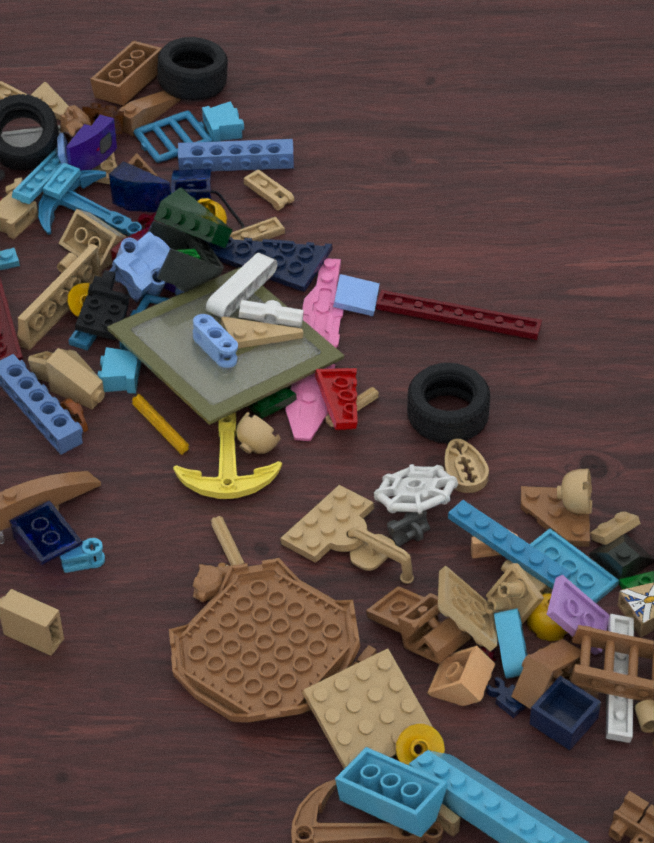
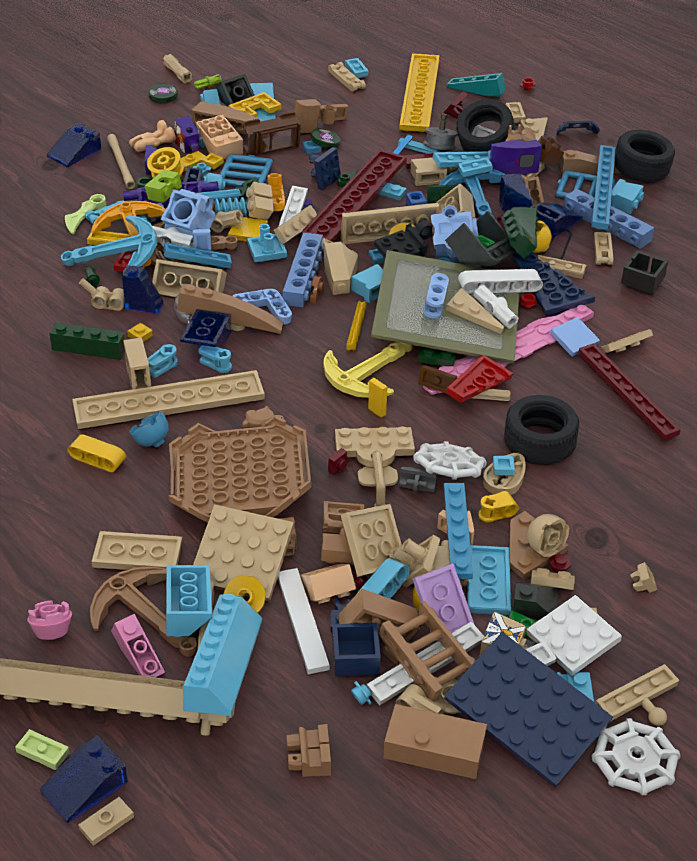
camera: 45 degrees right, 5 degrees down
(36, 588) = (162, 360): none -> medium azure piece
(47, 257) = (415, 198): none -> blue brick
(47, 456) = (268, 298): none -> light blue beam
(54, 231) = (436, 192): none -> dark green plate
(93, 634) = (168, 398): none -> tan plate
(96, 66) = (589, 125): none -> dark blue piece
(107, 736) = (96, 453): none -> yellow beam
(126, 73) = (590, 137): medium nougat brick -> none
(130, 671) = (151, 430): none -> dark azure cylinder
(204, 125) = (603, 188): none -> dark azure plate
(226, 541) = (303, 409): tan axle -> none
(256, 435) = (397, 365): tan cylinder -> none
(274, 792) = (134, 550): none -> tan plate
(275, 287) = (528, 300): none -> red plate
(285, 478) = (377, 397): none -> yellow tile
(308, 422) = (435, 378): none -> reddish brown tile
(327, 565) = (337, 461): none -> dark red plate
(341, 197) = (637, 275): none -> pearl dark grey piece
(402, 268) = (632, 340): none -> tan plate
(463, 459) = (503, 465): none -> medium azure plate
(486, 728) = (303, 622): none -> white tile
(499, 499) = (498, 506): none -> yellow piece
(601, 509) = (560, 562): none -> dark red plate
(610, 745) = (361, 693): none -> medium azure plate

